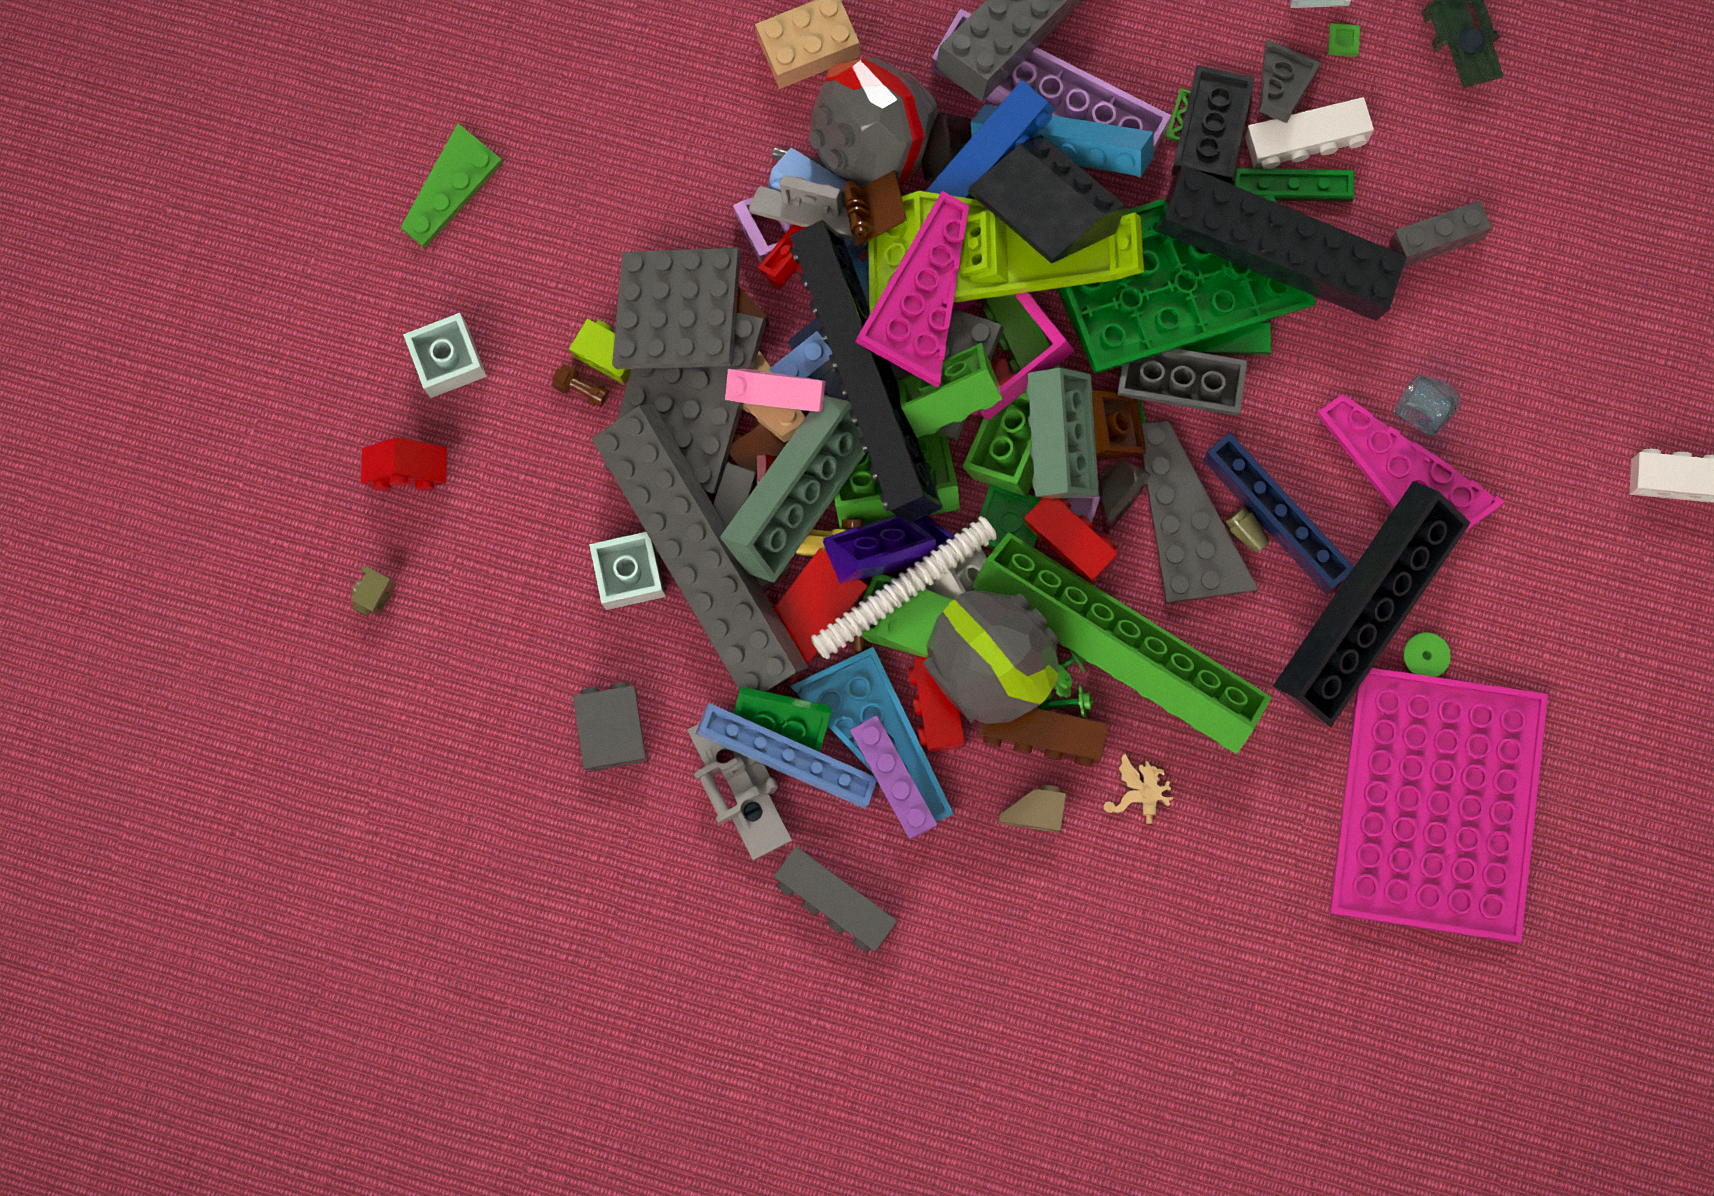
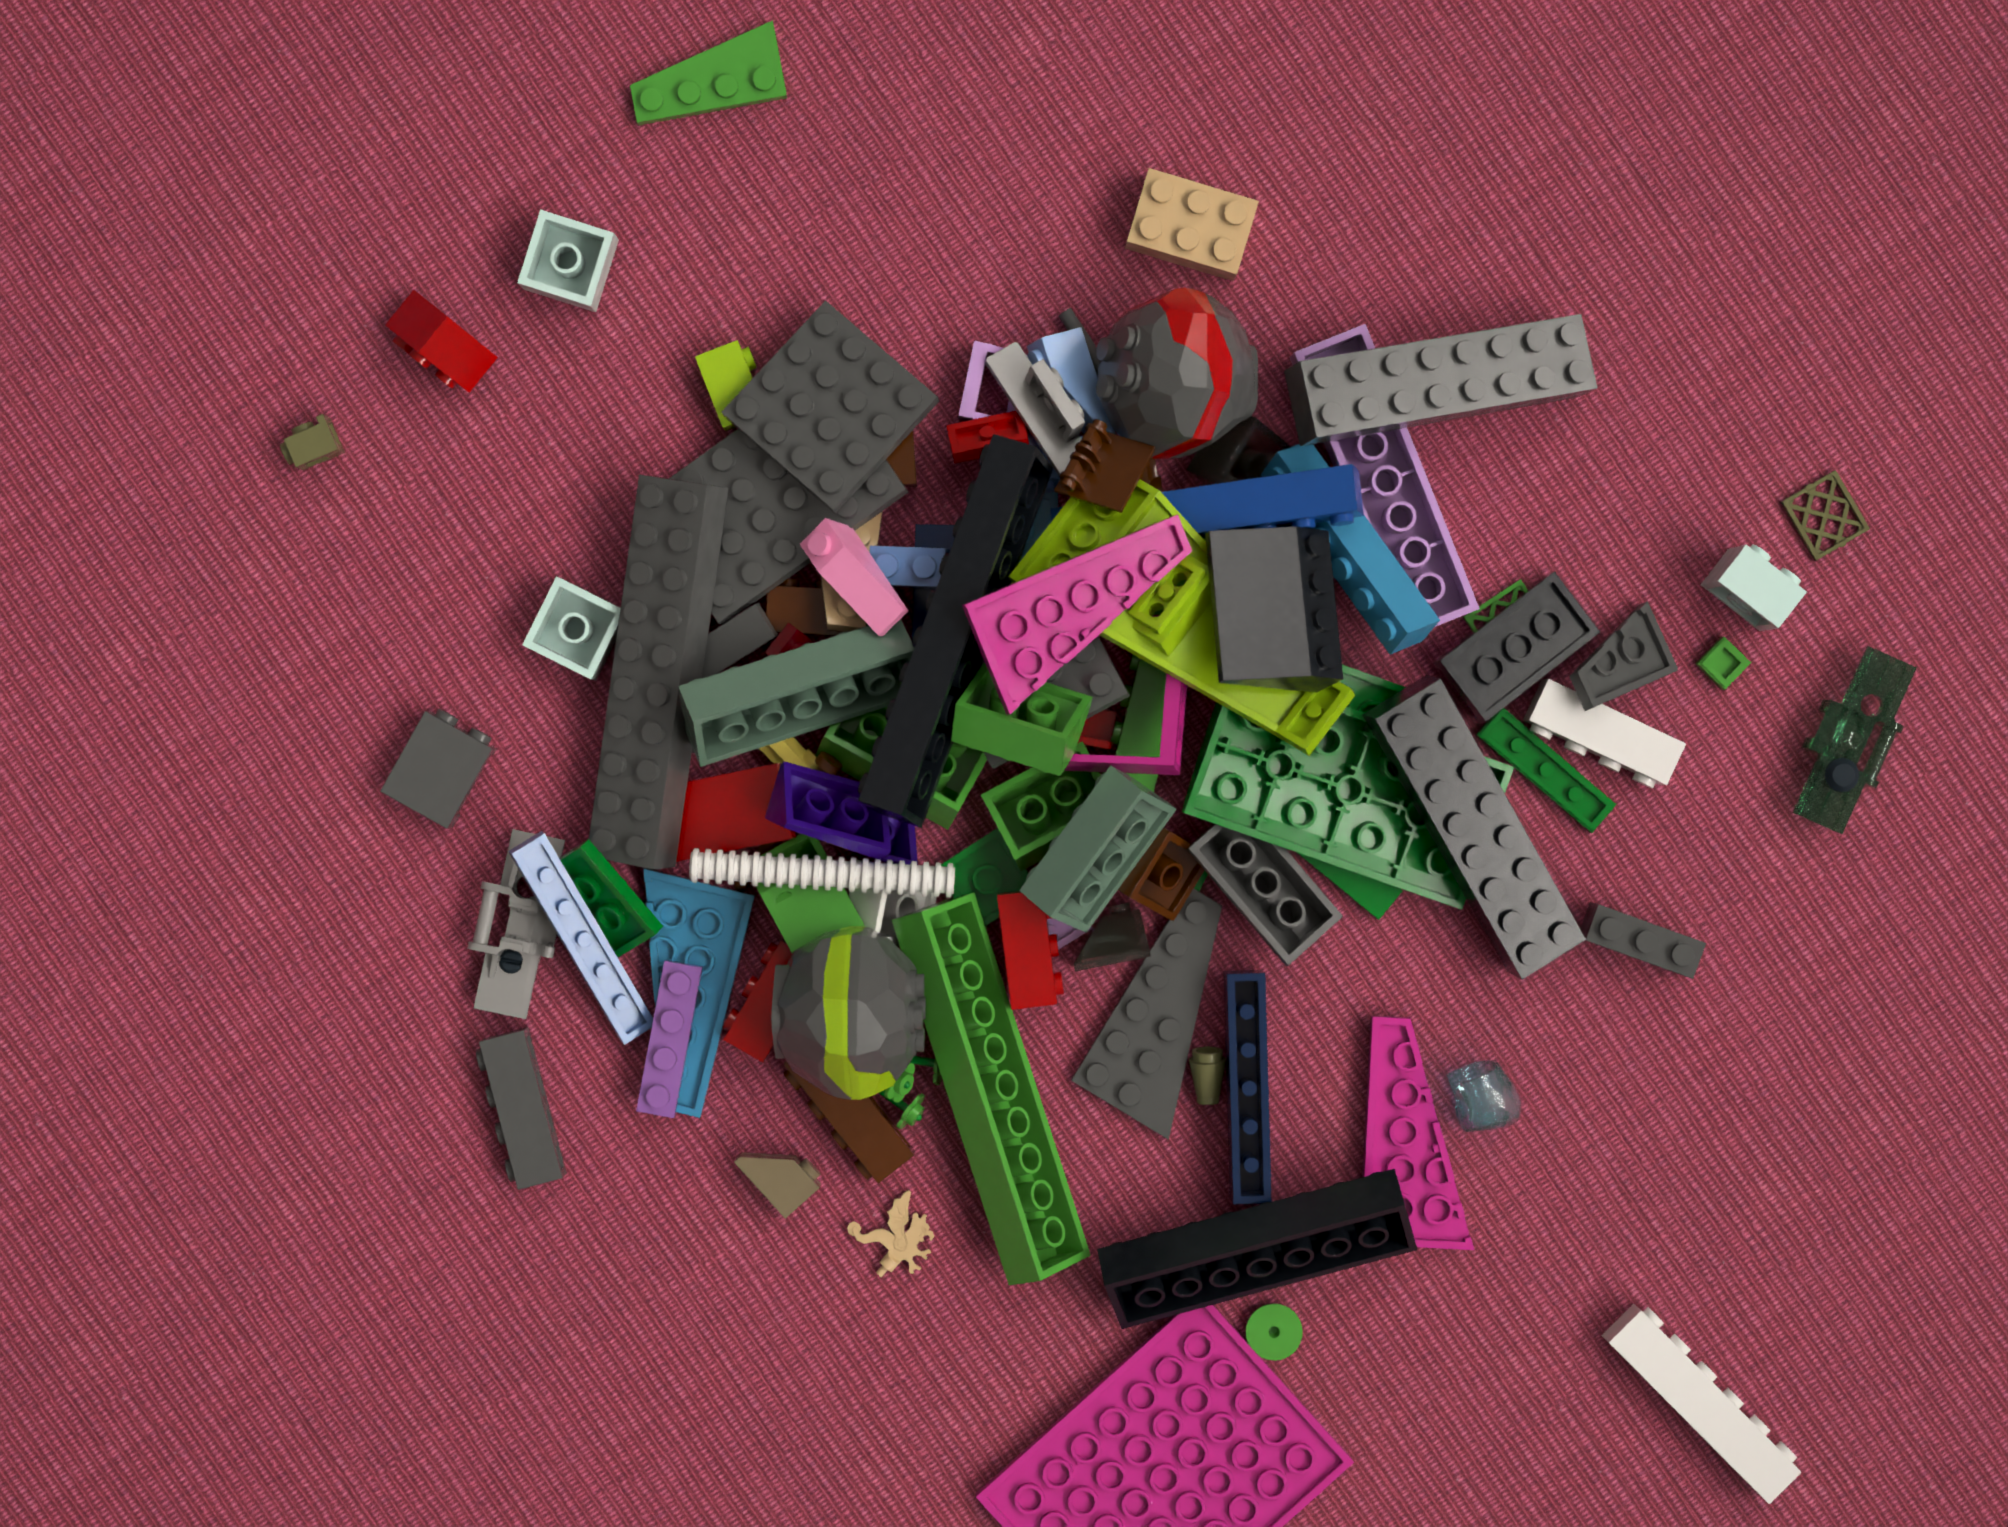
camera: 30 degrees right, 10 degrees up
(566, 378) = (670, 381): reddish brown bar -> none

